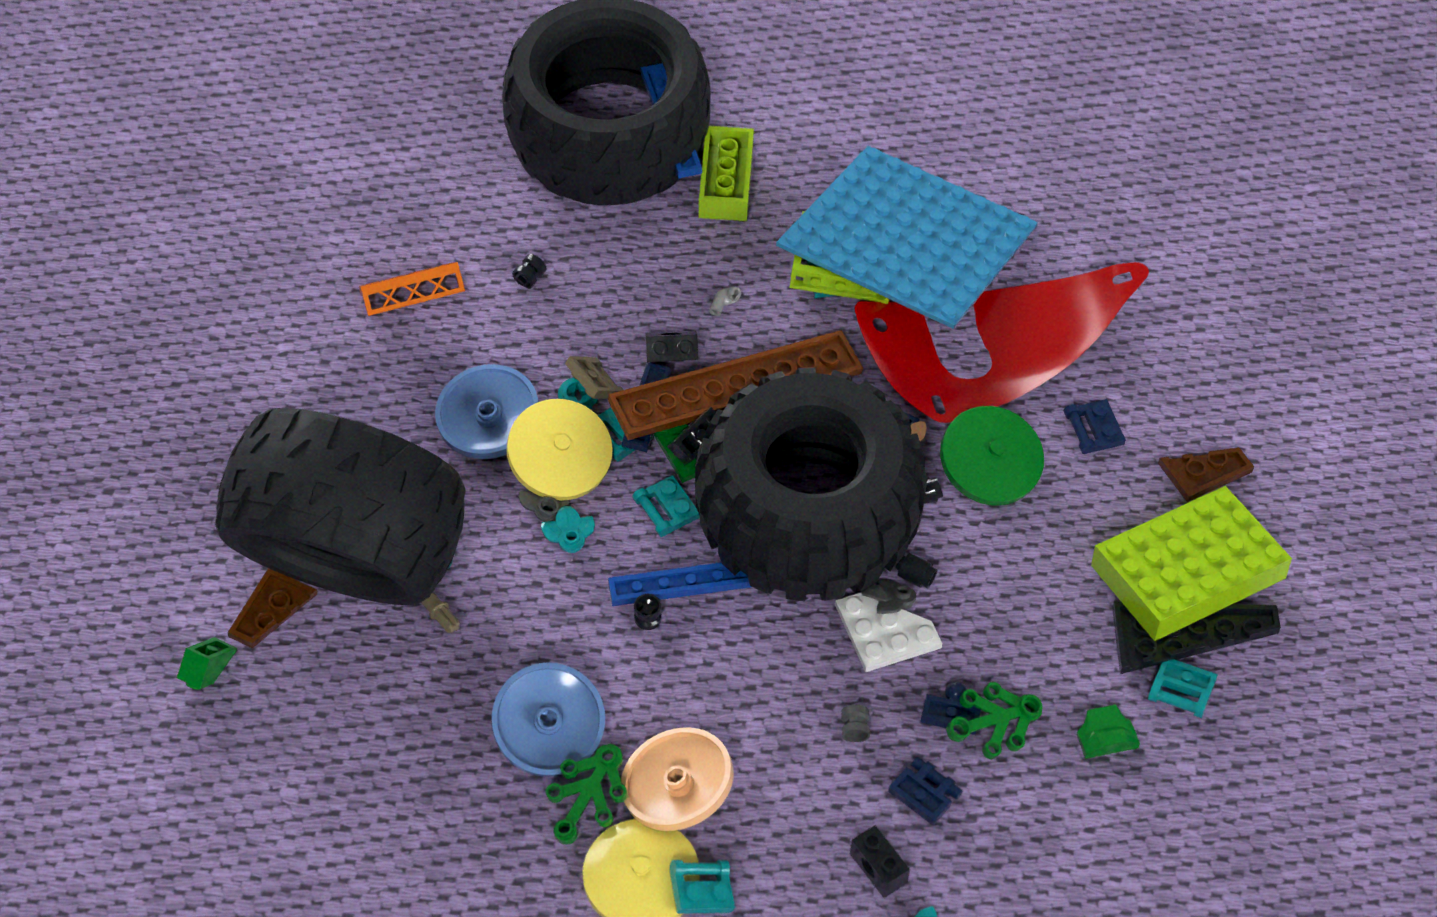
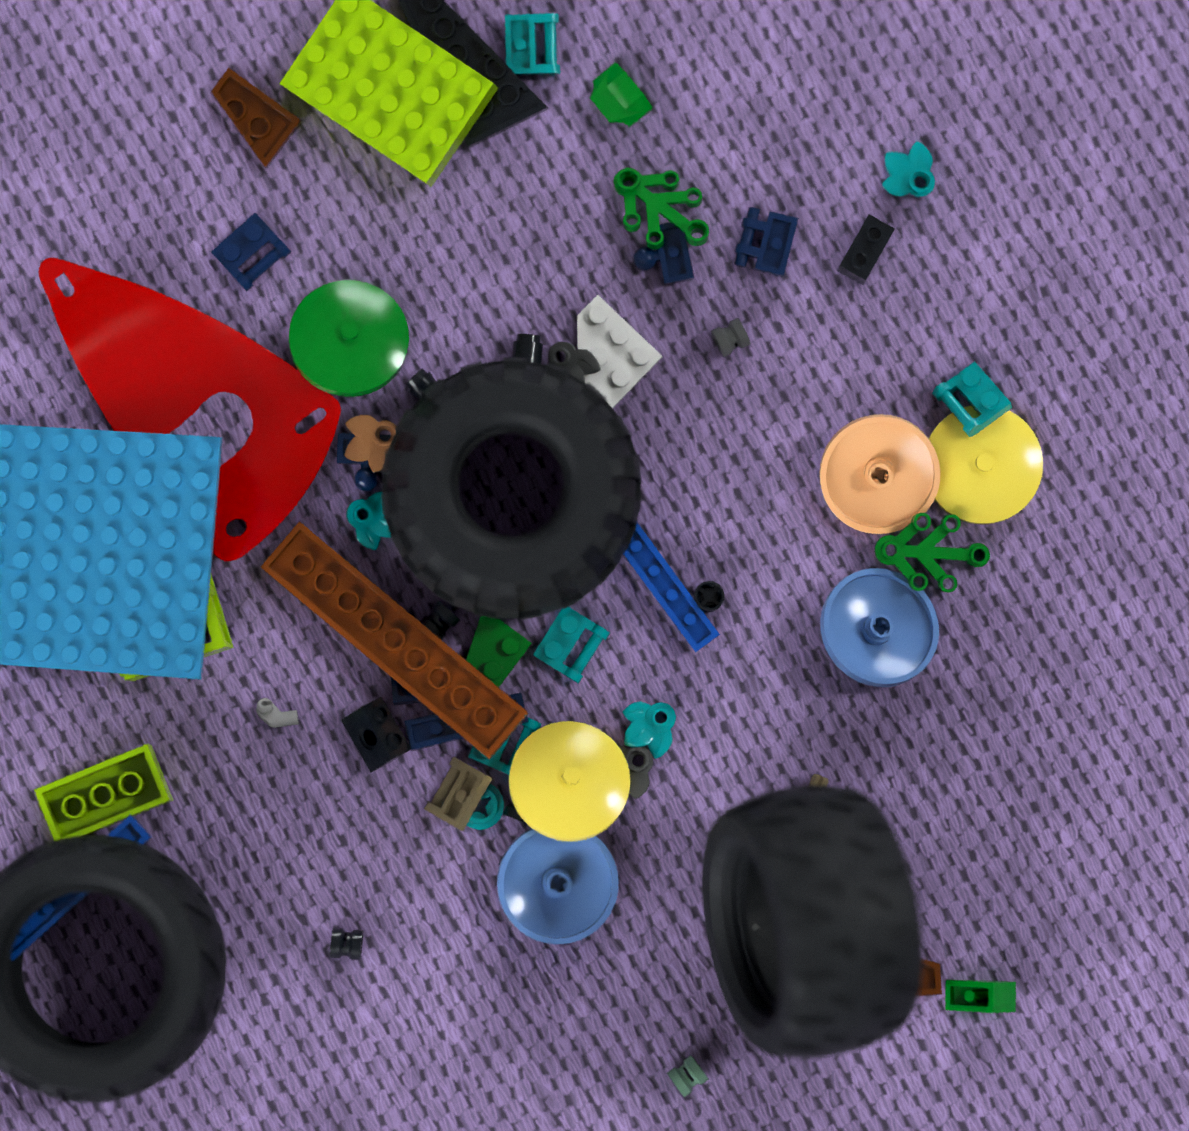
camera: 120 degrees left, 30 degrees up
(411, 278) = (425, 1065): orange fence -> none
(687, 443) = (492, 641): black brick -> none

